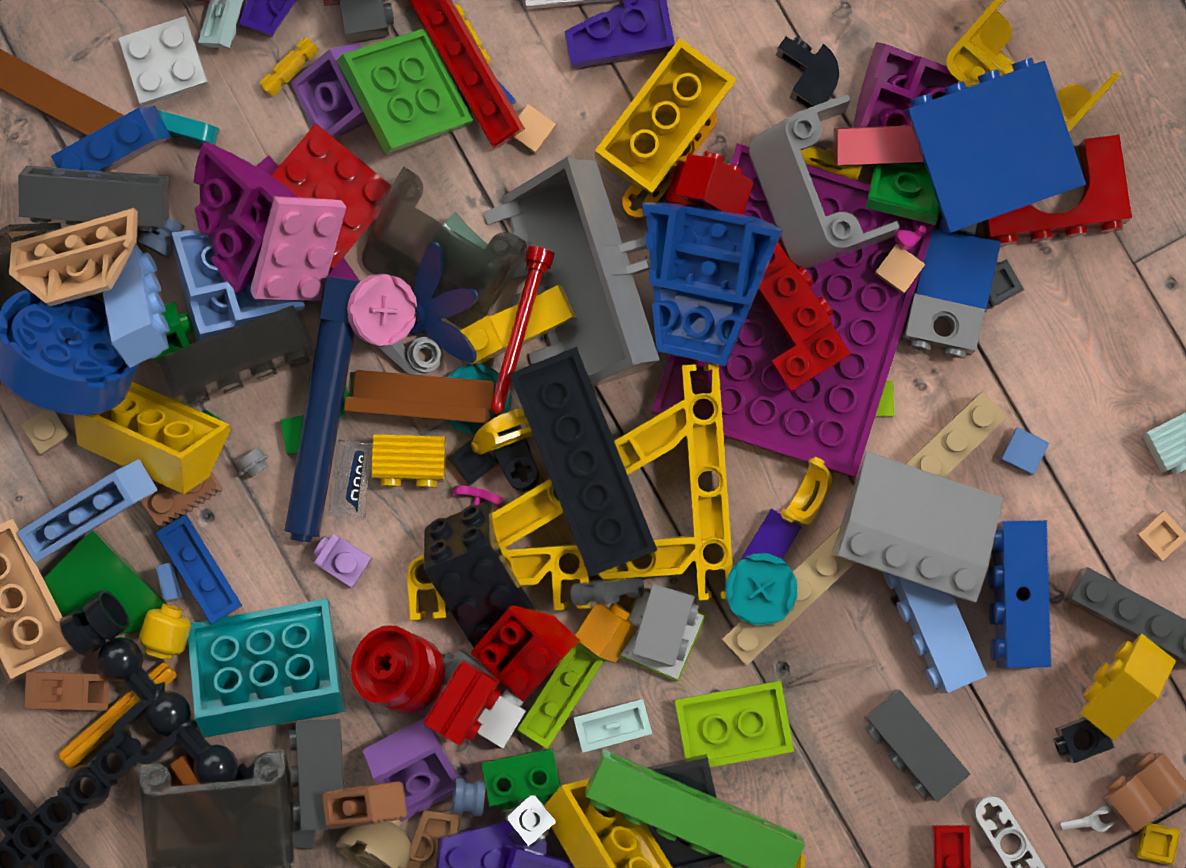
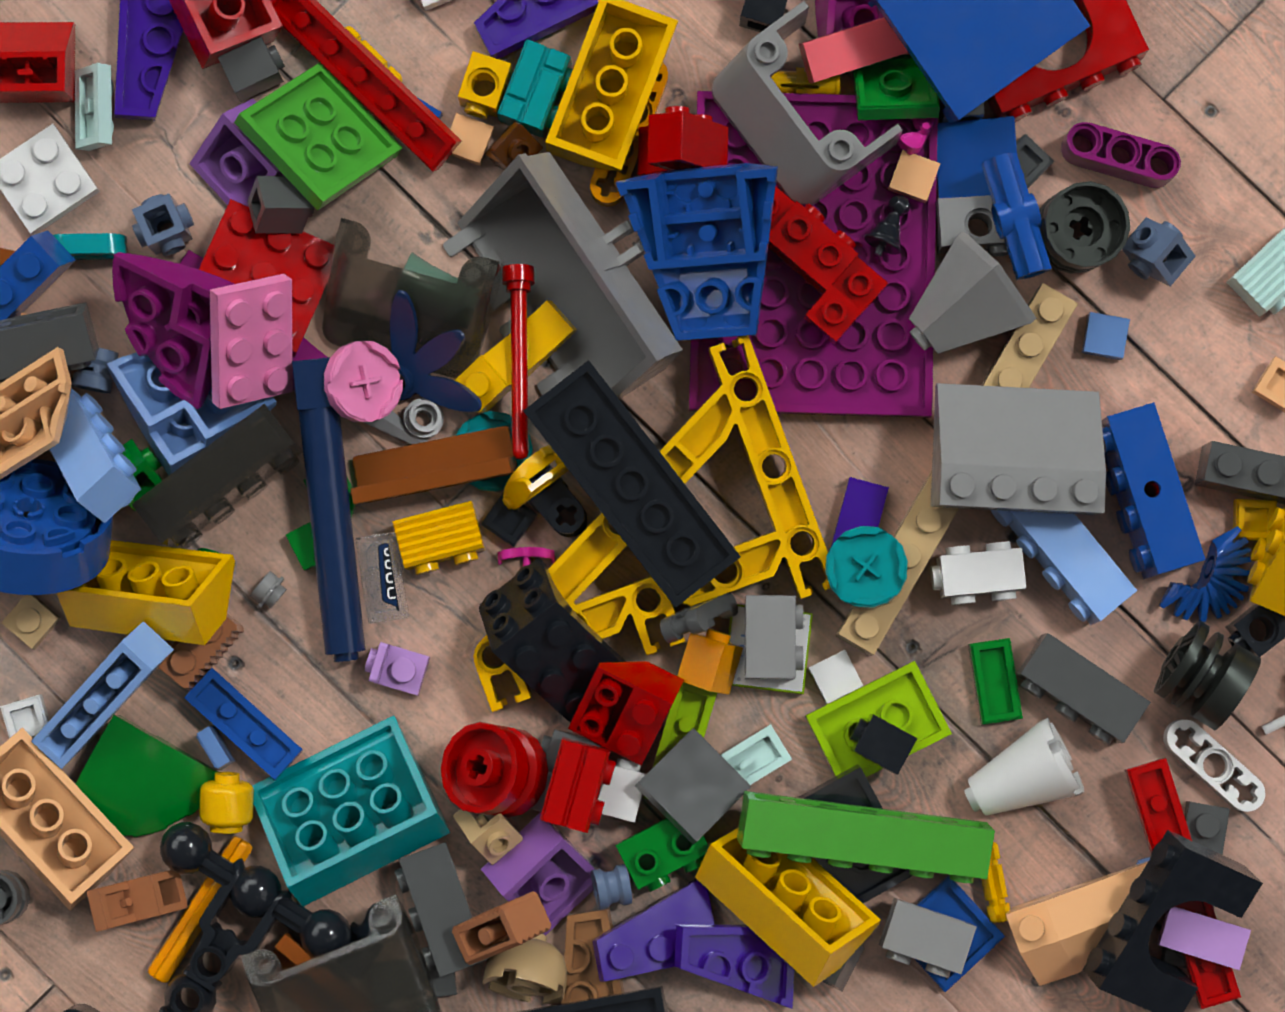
camera: 20 degrees left, 0 degrees up
(20, 508) = (26, 713): none -> white tile
(94, 623) = (142, 820): black wheel -> none
(244, 119) = (156, 212): none -> sand blue brick
(289, 66) = (182, 146): yellow axle -> none
(353, 141) = (278, 206): none -> dark grey brick
(377, 725) = (490, 837): none -> tan bracket
(529, 822) = (687, 894): bracket -> none
(558, 72) = (484, 68): none -> yellow brick
(561, 732) = (693, 786): none -> dark grey tile
(567, 144) = (510, 144): none -> reddish brown bracket
(600, 102) = (535, 88): none -> teal brick
(710, 674) = (835, 676): none -> white tile
(731, 742) = (882, 743): none -> black brick
(815, 474) = (888, 424): yellow helmet -> none
(844, 717) = (995, 681): none -> green tile
(845, 620) = (967, 574): none -> white brick
(847, 804) = (1025, 774): none -> white cone
(861, 312) = (886, 234): none -> black piece
(913, 388) = (967, 300): none -> light grey slope
(976, 328) = (1016, 216): none -> blue piece
(1025, 765) = (1202, 672): none -> pearl dark grey wheel
(1049, 352) = (1103, 222): none -> pearl dark grey wheel
(1057, 687) = (1215, 580): none -> blue hair
(1089, 392) = (1158, 251): none -> sand blue brick
(1099, 300) = (1139, 150): none -> magenta beam
(1104, 643) = (1253, 517): none -> yellow tile

